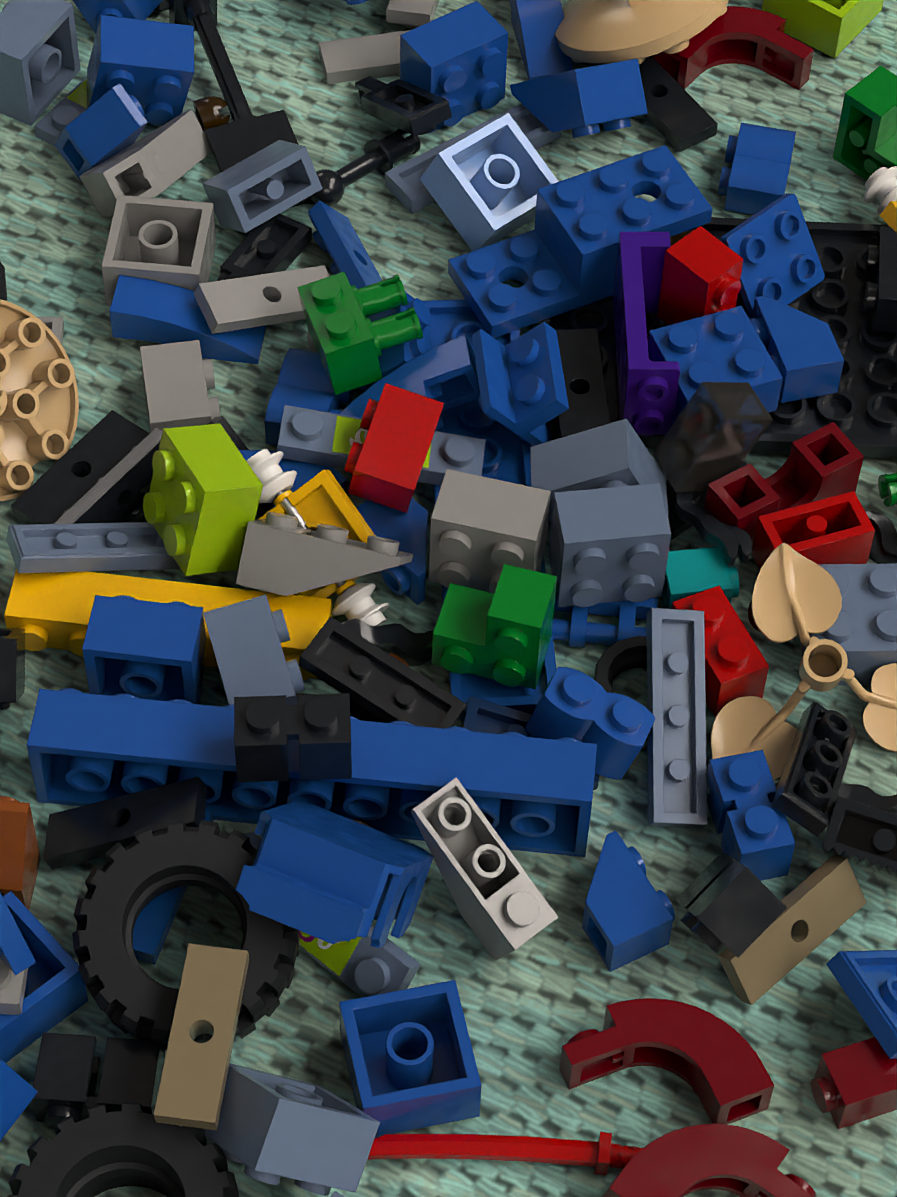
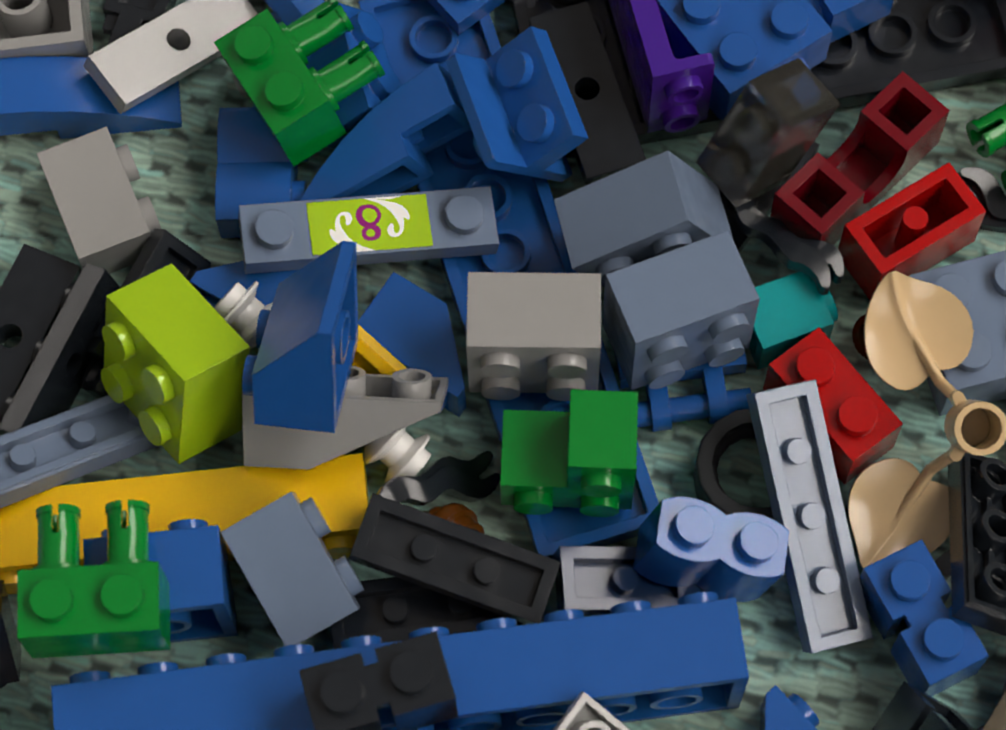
camera: 10 degrees left, 15 degrees up
(90, 630) = (93, 607): none -> green brick
(308, 490) = (306, 345): none -> blue slope
(394, 448) = (394, 235): red brick -> none

